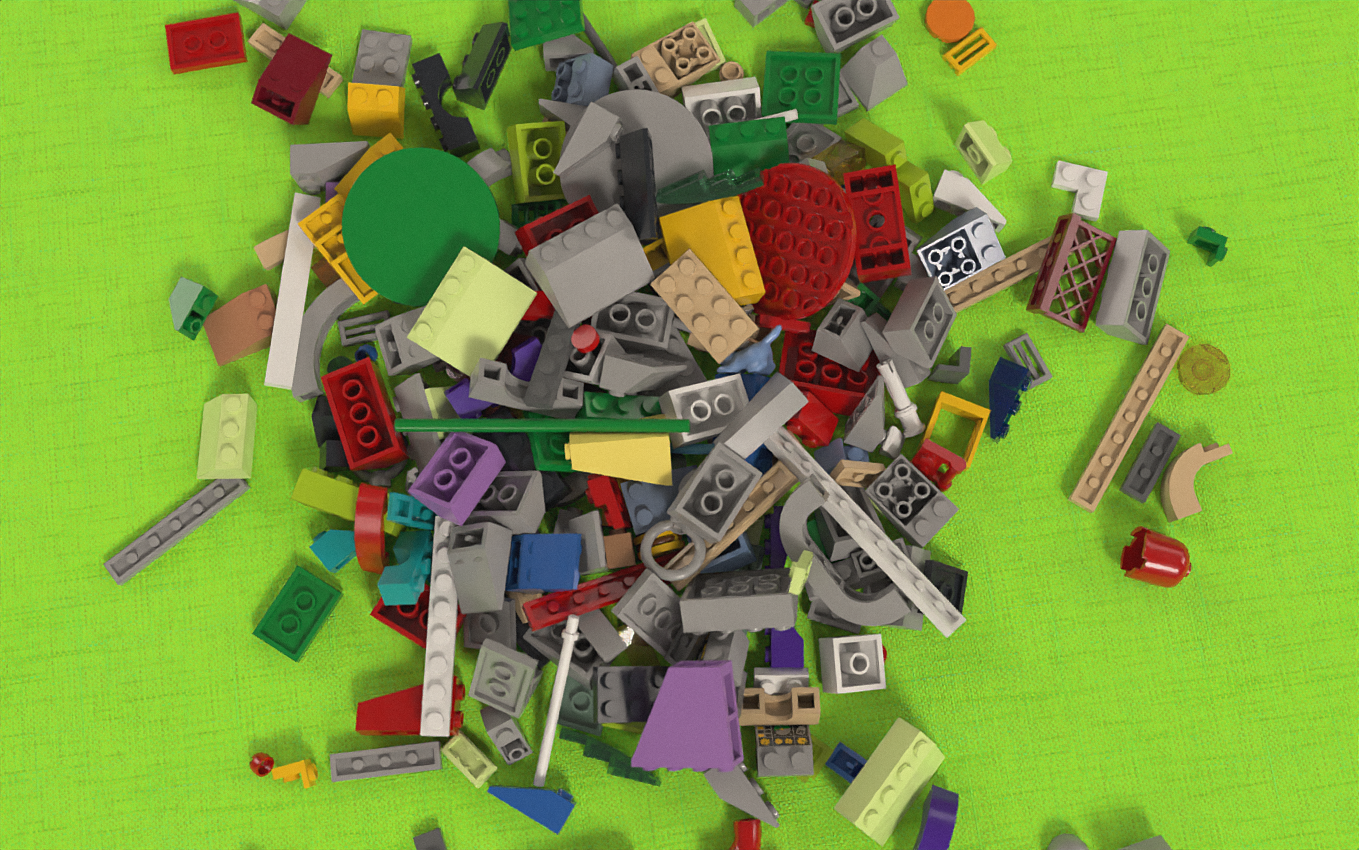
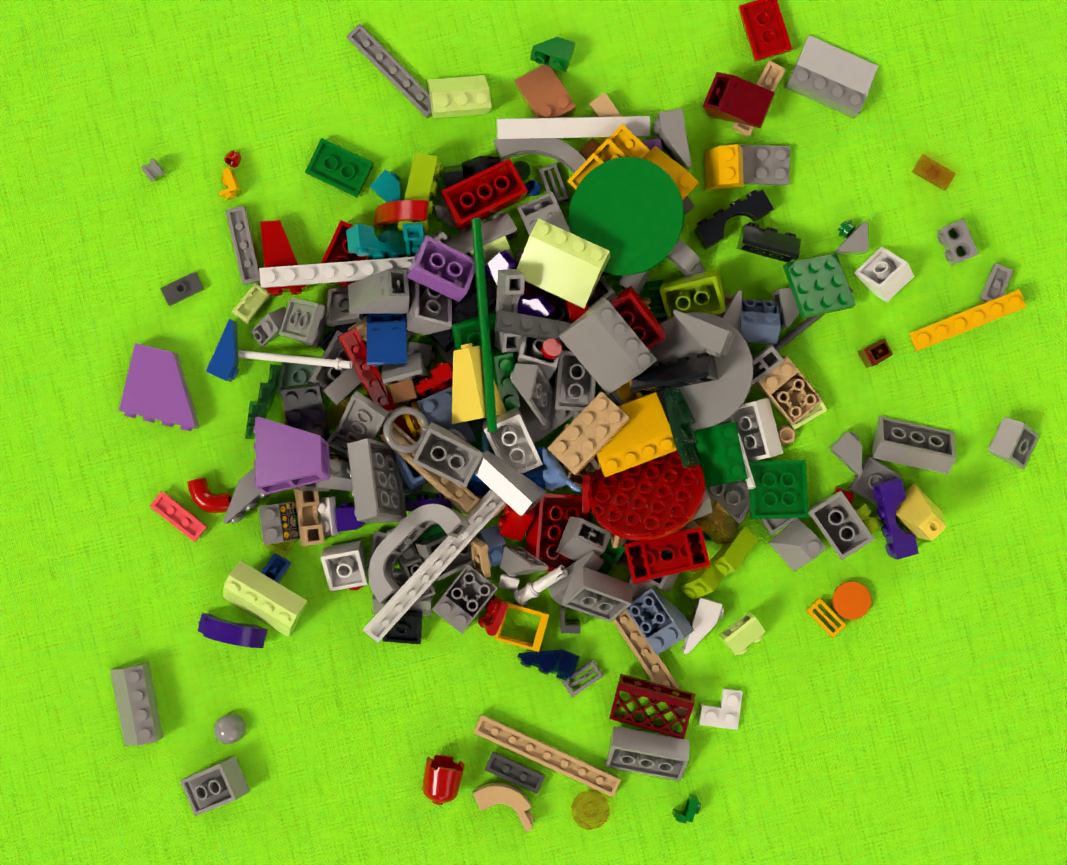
camera: 85 degrees right, 10 degrees up
(800, 571) = (396, 521): yellowish green plate -> none

